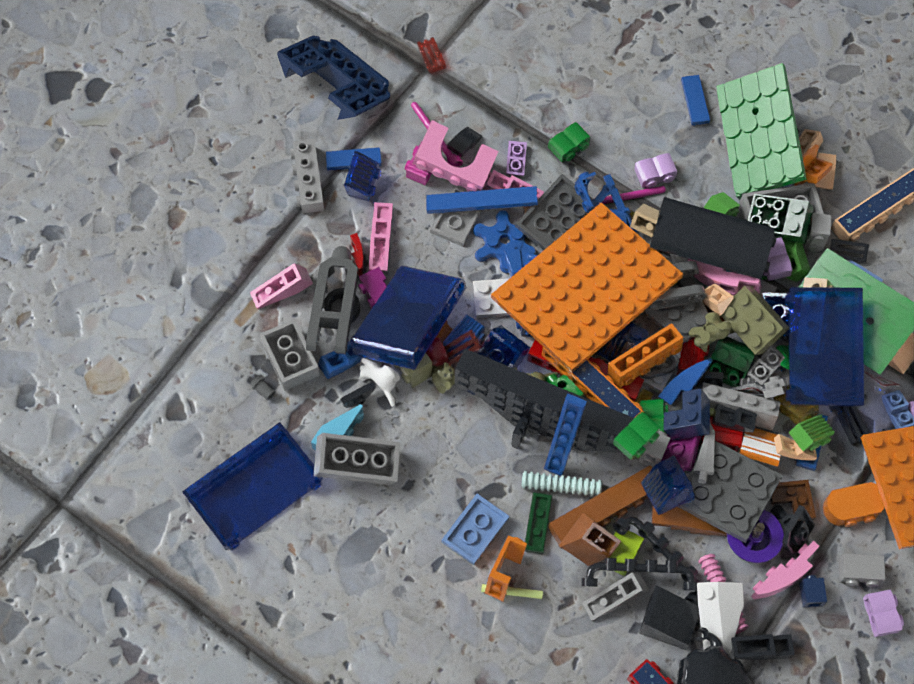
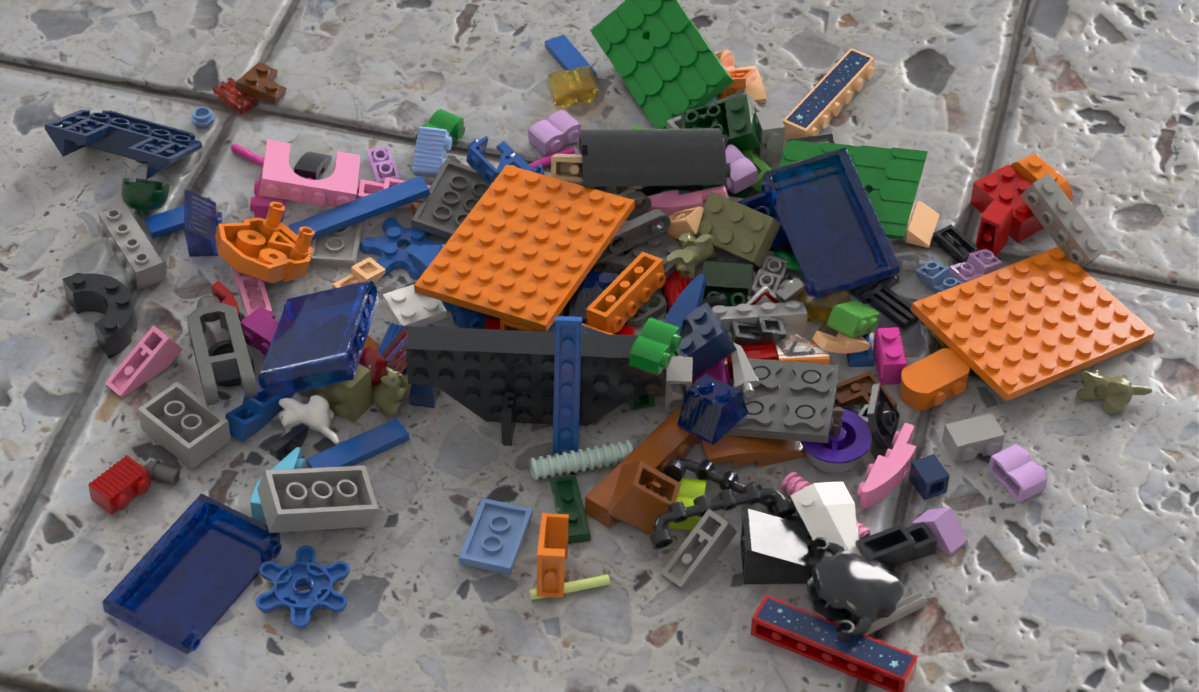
camera: 20 degrees left, 20 degrees down
(229, 390) = (119, 485): none -> red brick
(279, 240) = (109, 297): none -> black brick
(318, 512) = (300, 573): none -> blue plate
(332, 132) = (144, 195): none -> dark green cylinder
(398, 216) = (266, 247): none -> orange brick
(400, 69) = (202, 117): none -> medium blue plate
(406, 415) = (361, 446): none -> blue tile
(450, 53) = (260, 84): none -> reddish brown plate
(460, 262) = (361, 272): none -> light nougat slope
(553, 162) = (430, 151): none -> light blue brick
(685, 130) = (572, 86): none -> clear yellow brick
(759, 439) = (795, 343): none -> clear slope
(804, 641) = (945, 528): none -> lavender slope
(828, 470) = (889, 355): none -> dark pink brick

